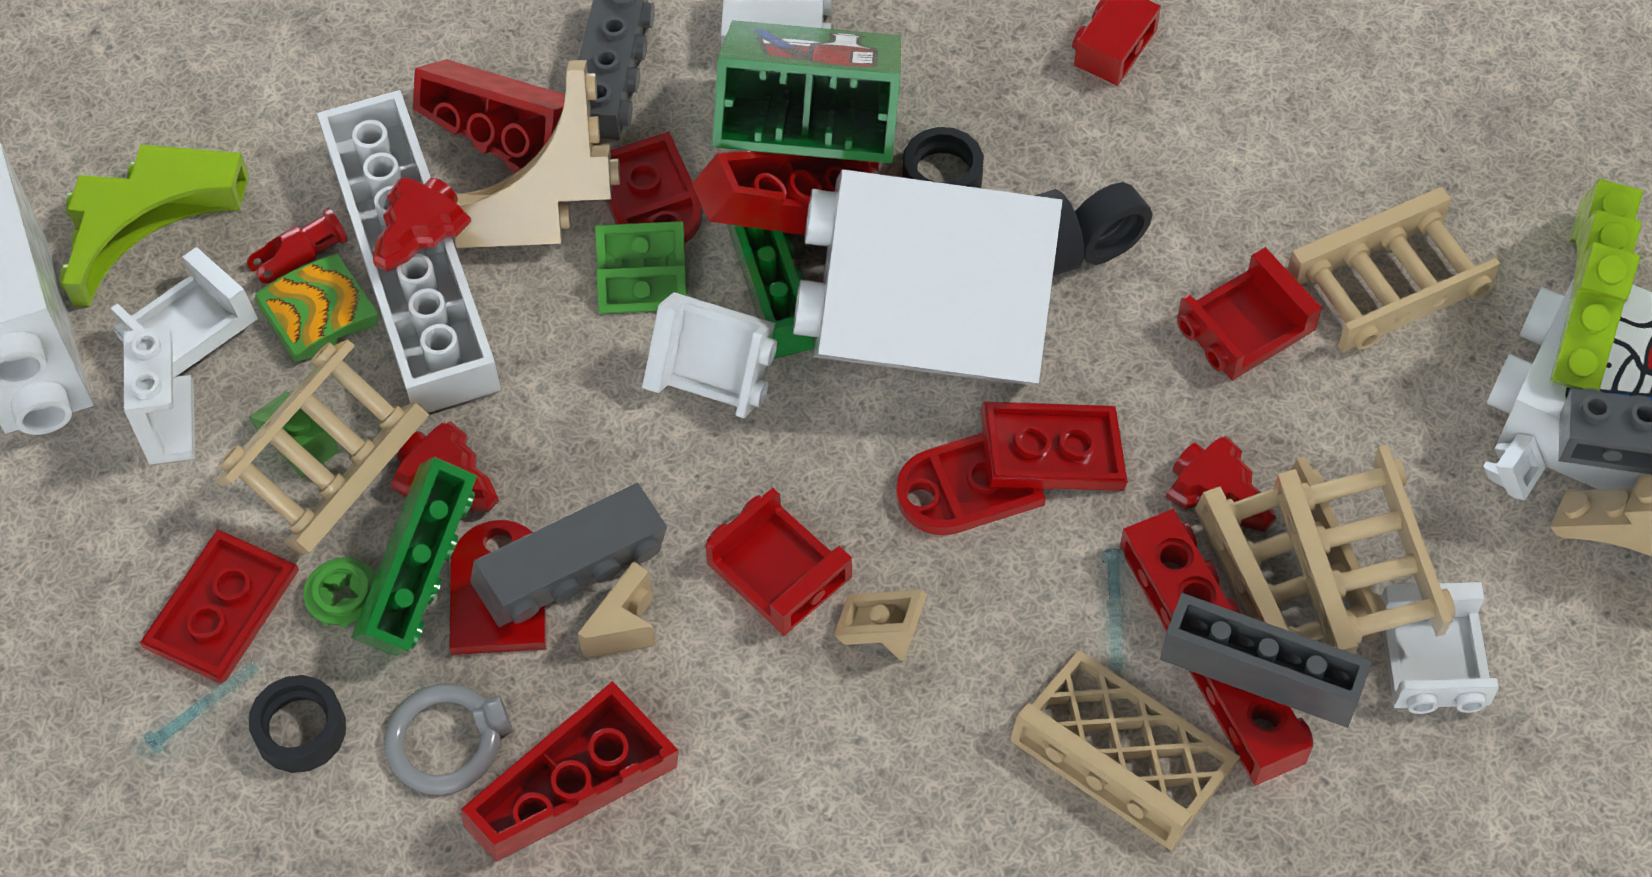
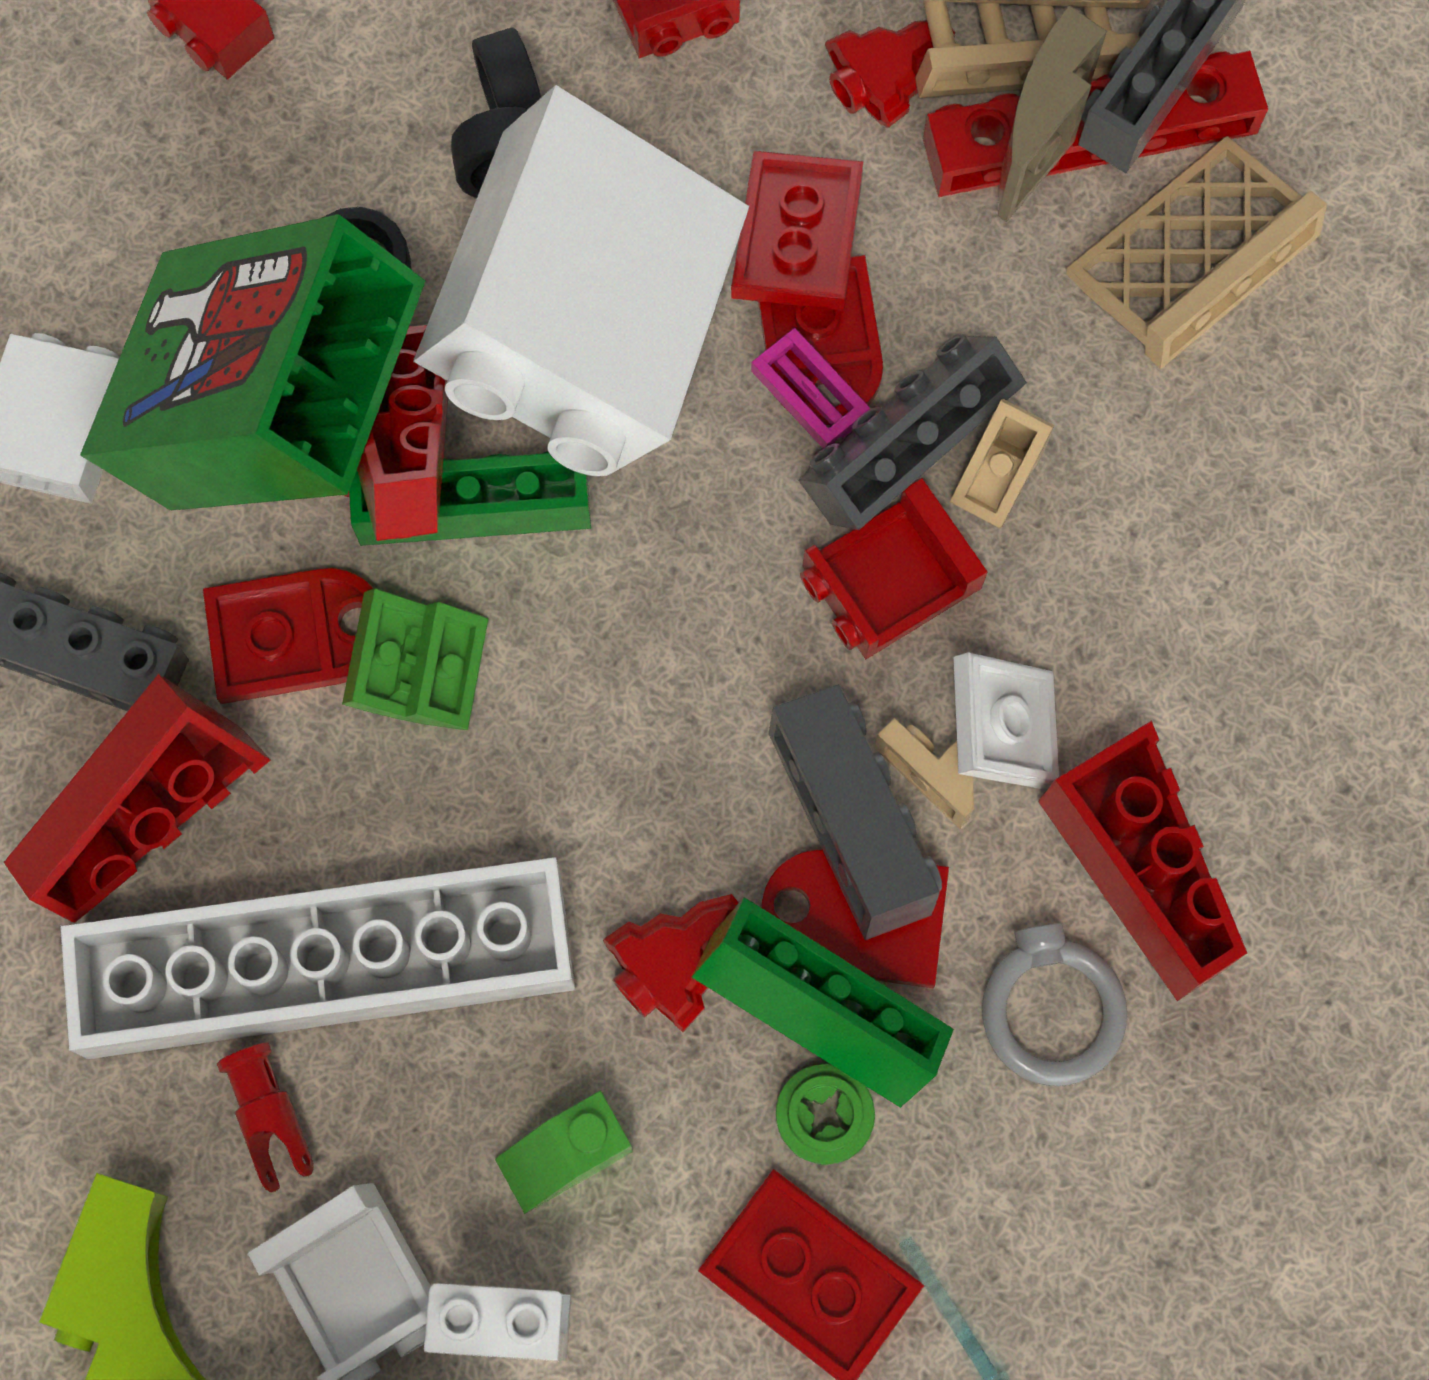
camera: 80 degrees left, 15 degrees up
(312, 754) = (1052, 1174): black tyre -> none
(316, 306) = (372, 1100): slope -> none
(337, 491) = (670, 1073): tan fence -> none
(416, 220) = (314, 924): red rock -> none
(567, 168) = (288, 772): tan arch -> none
(665, 655) = (1005, 721): none -> white tile
(710, 352) = (592, 585): white panel -> none
(893, 503) = (791, 401): none -> dark pink tile
(893, 547) = (912, 430): none -> dark grey brick
(1113, 558) = (956, 204): clear light blue piece -> none
(1163, 561) = (1049, 107): none -> dark tan slope

